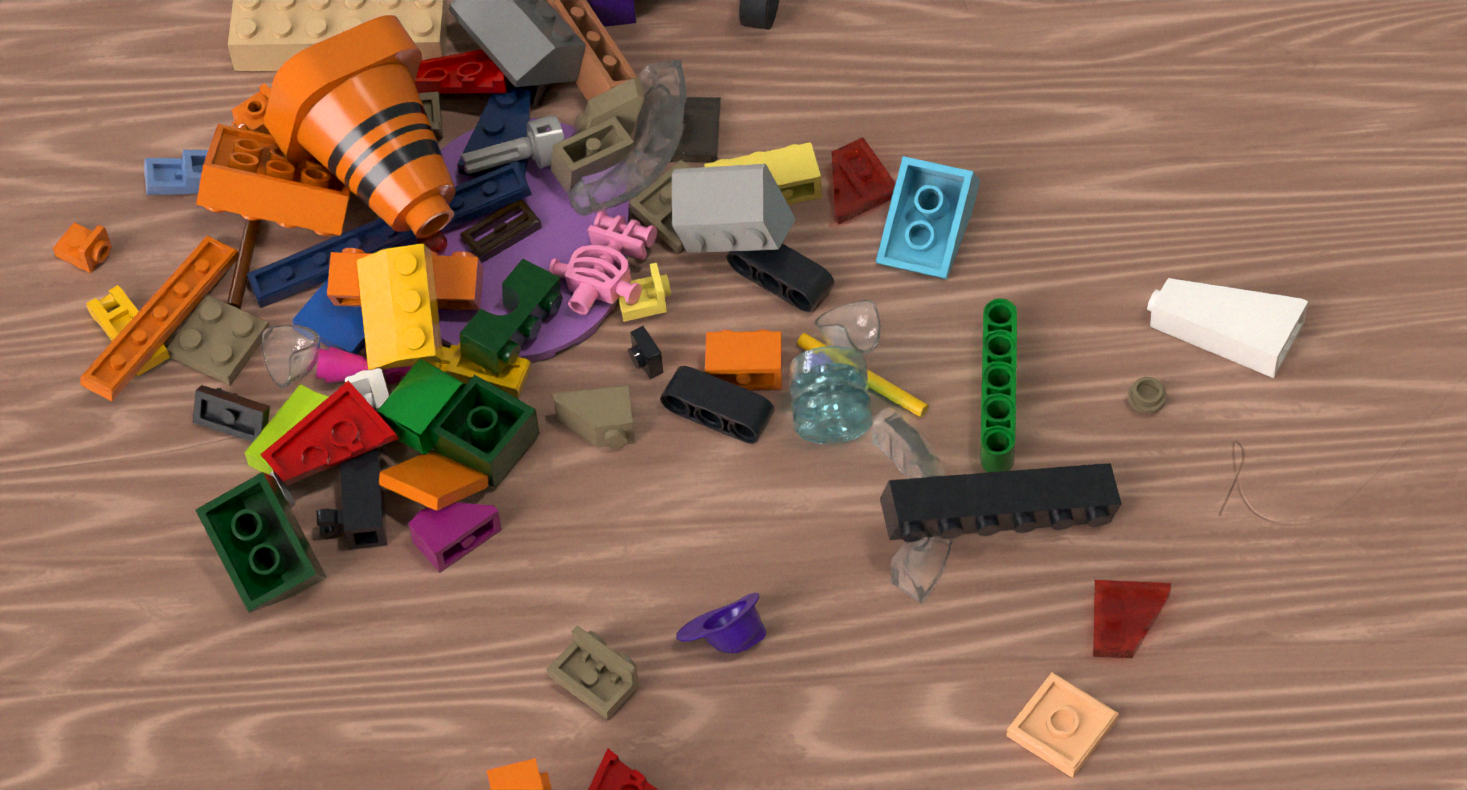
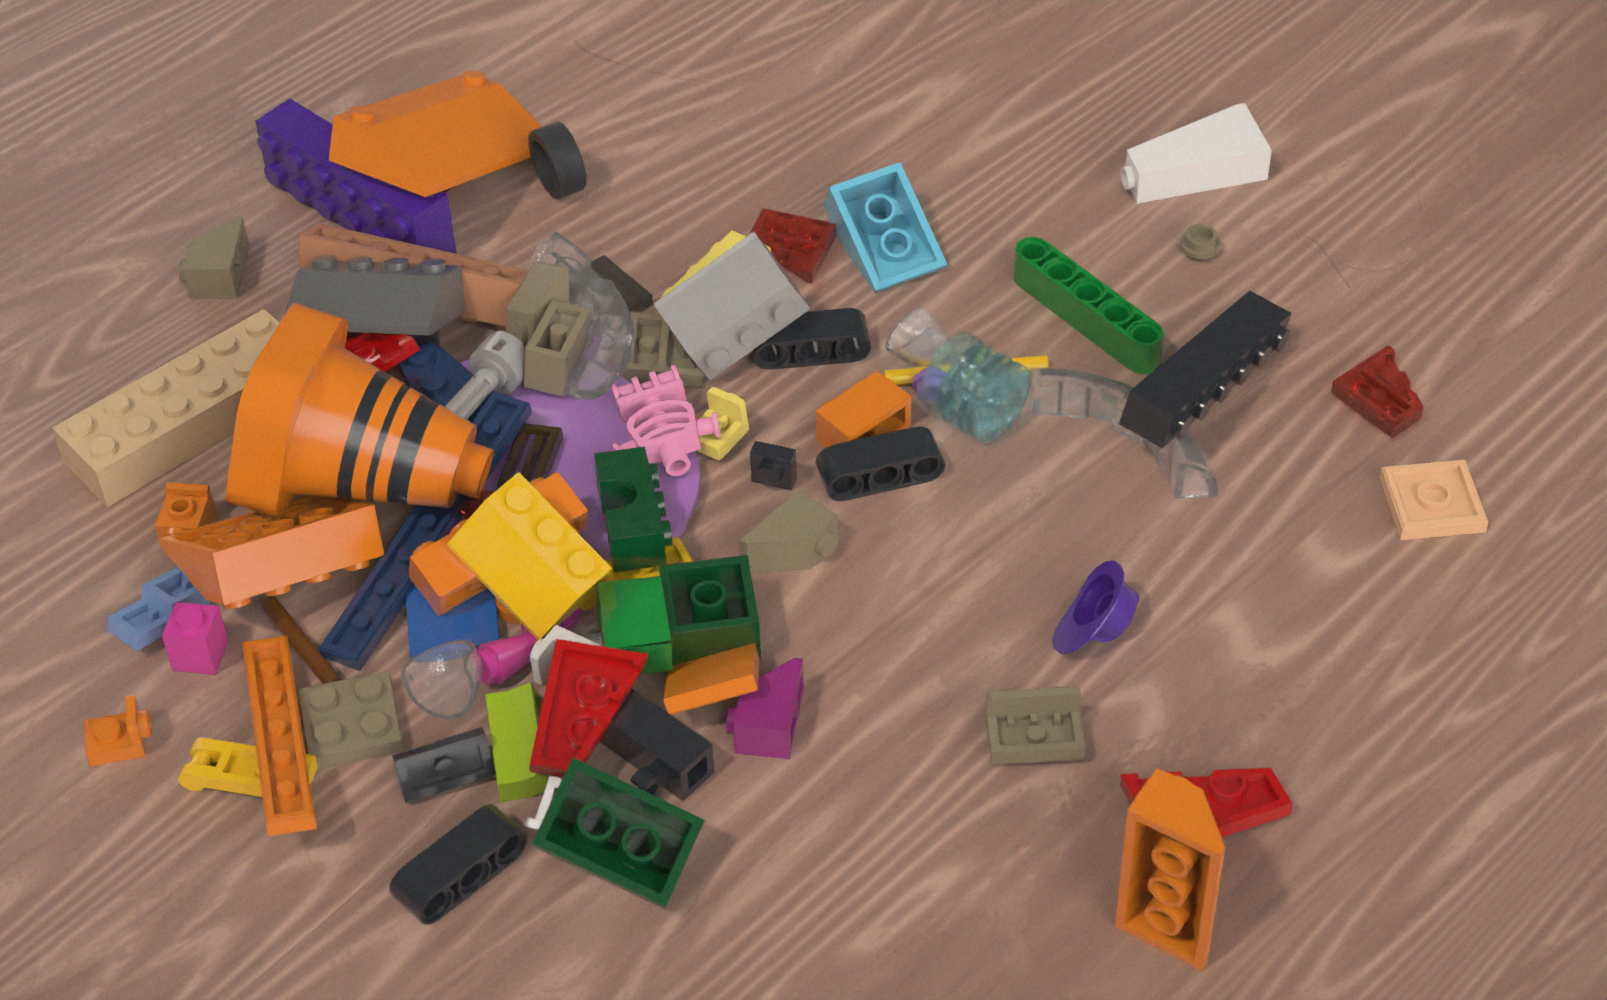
camera: 45 degrees left, 10 degrees down
(172, 487) = (458, 864): none -> black beam
(179, 212) = (195, 638): none -> dark pink brick

